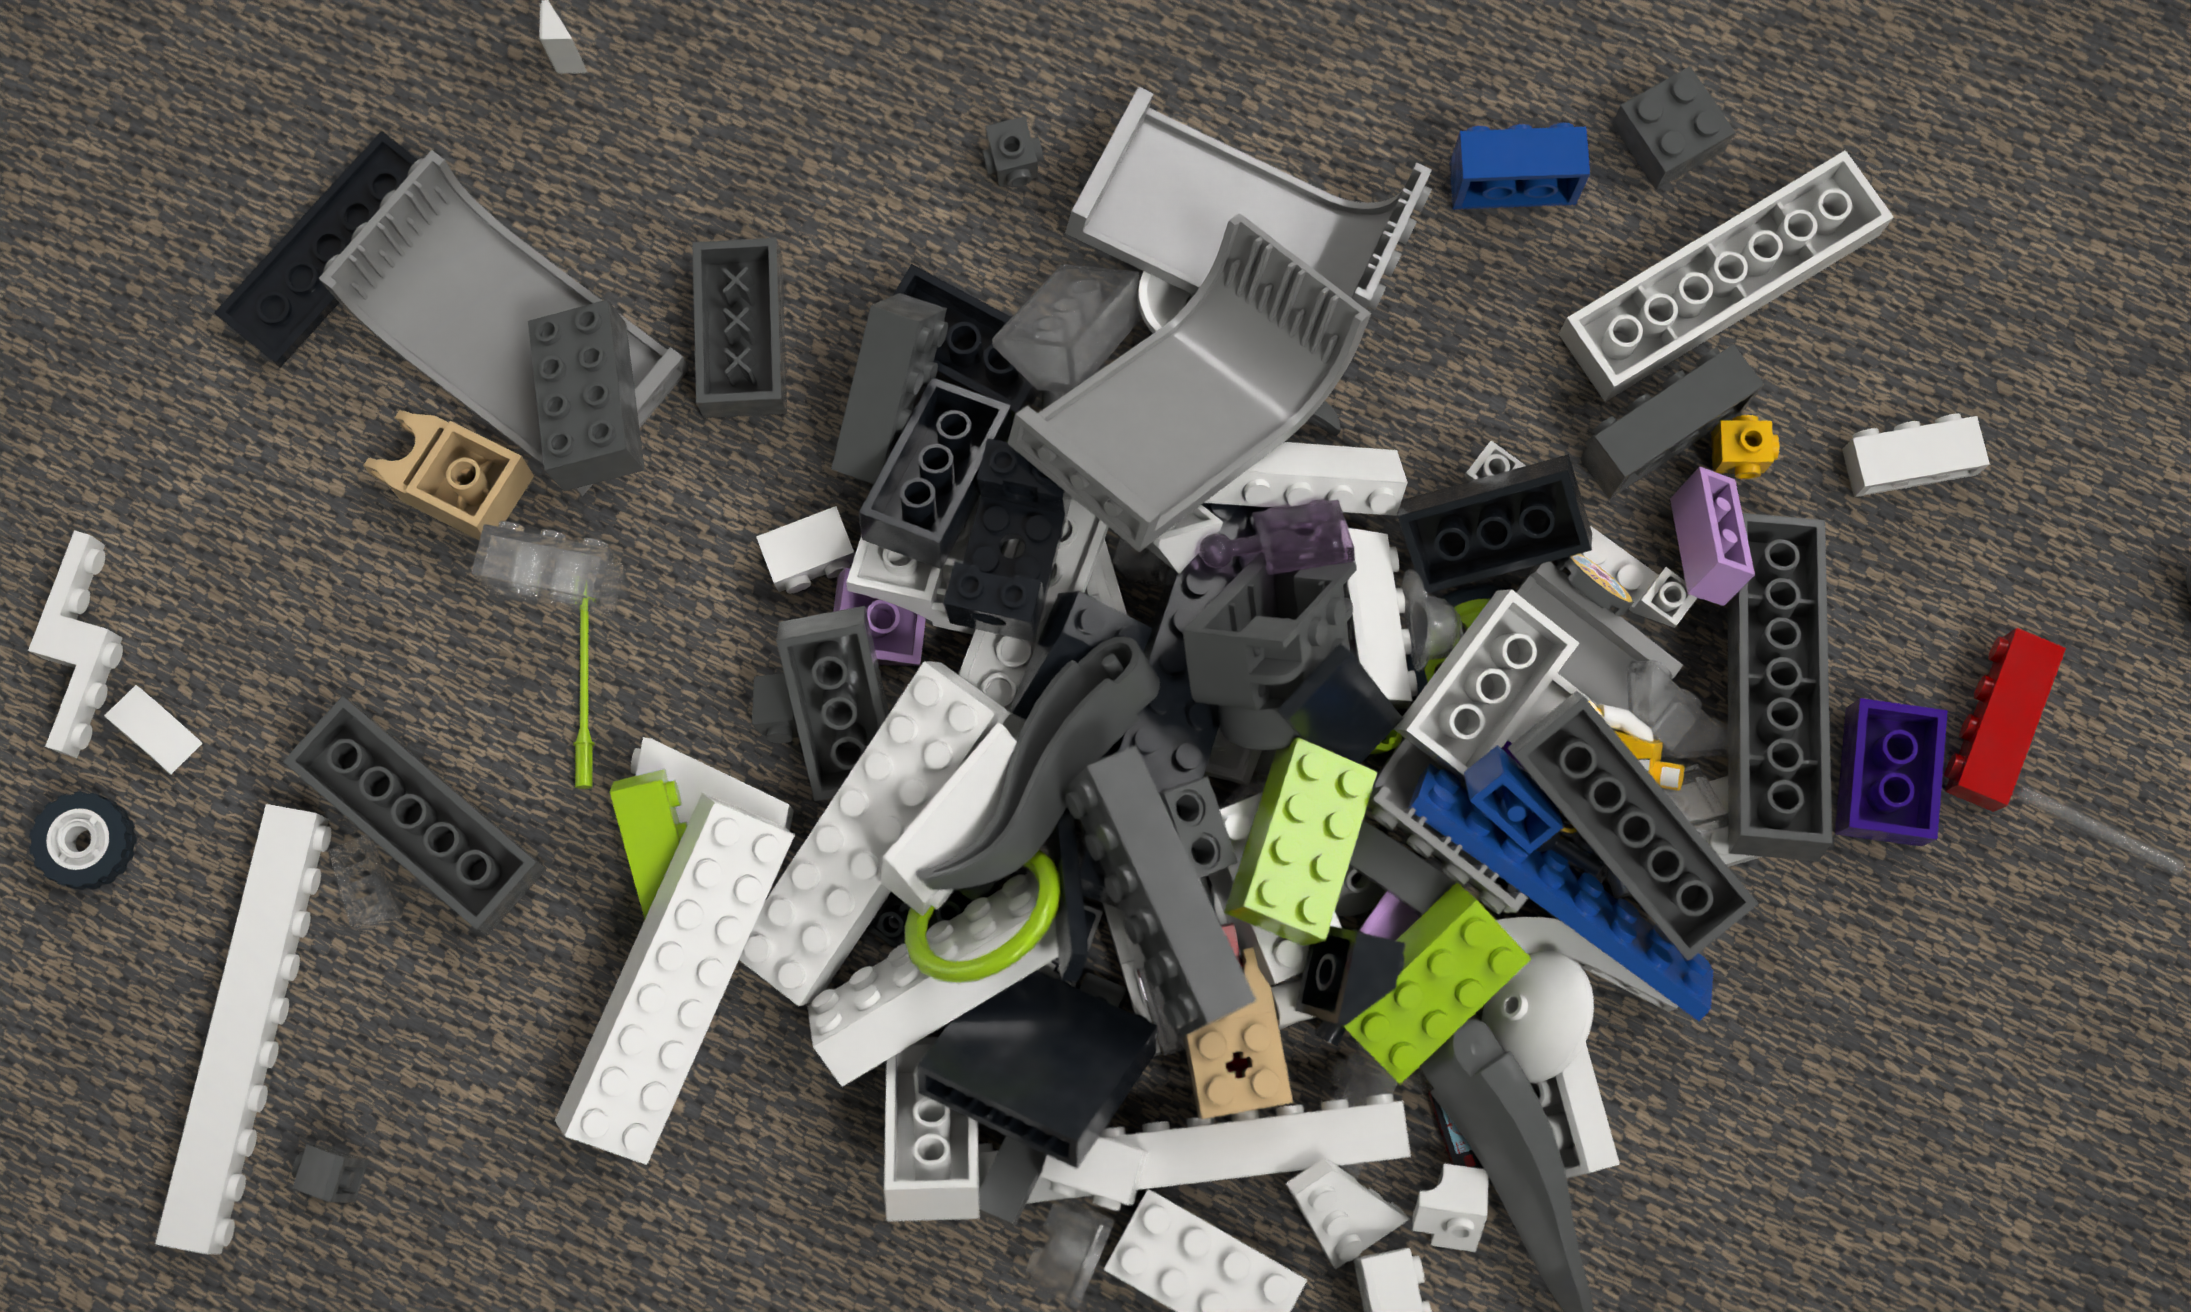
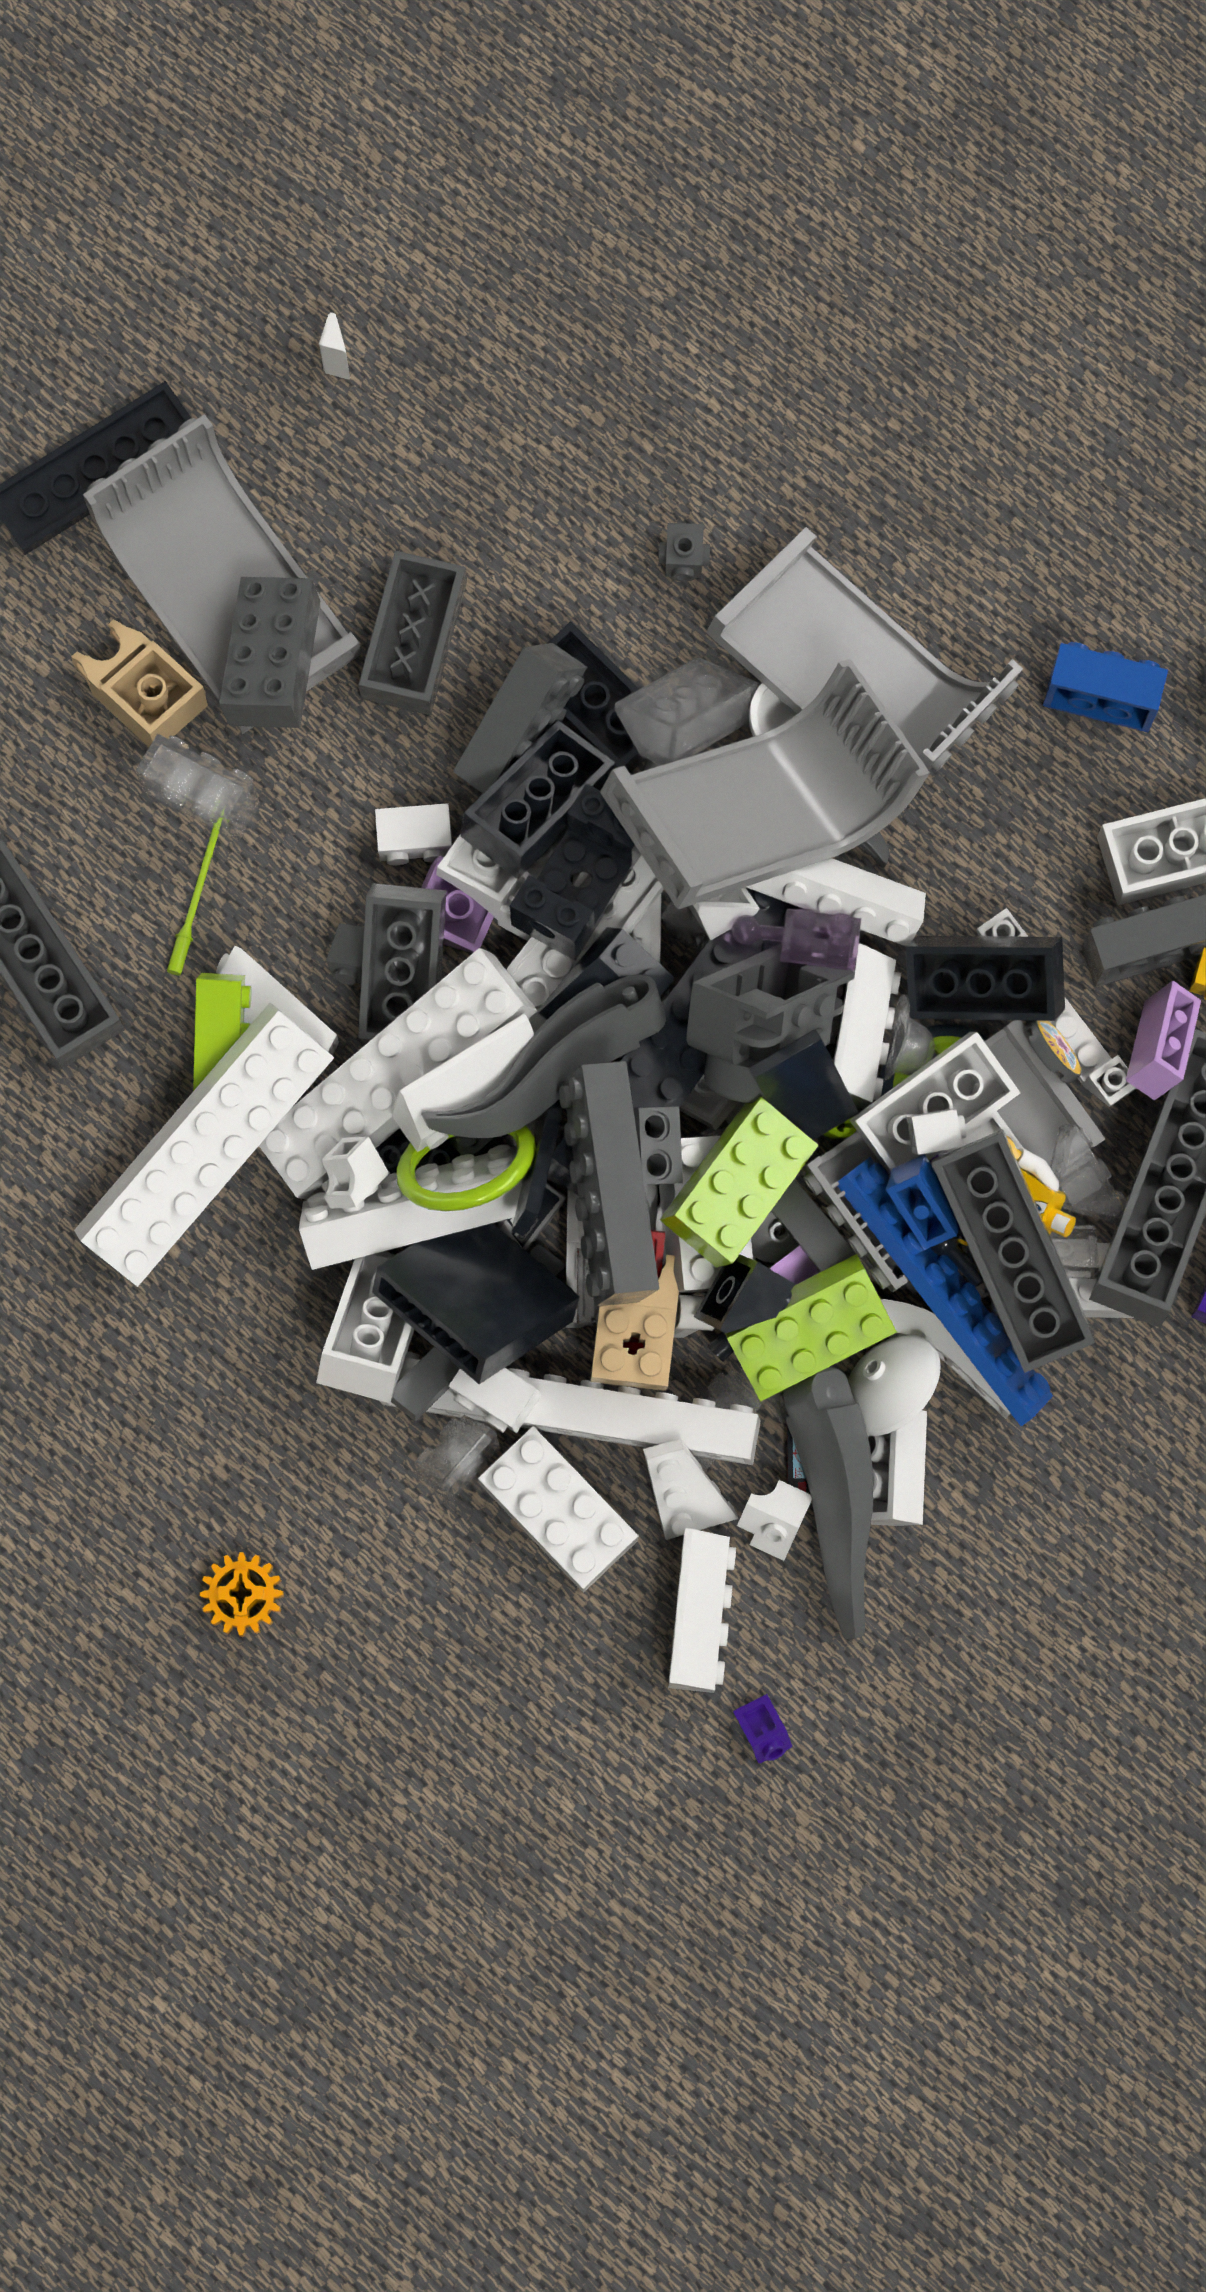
camera: 15 degrees right, 0 degrees up
(856, 962) = (353, 1172): none -> white brick
(1502, 715) = (936, 1131): none -> white brick

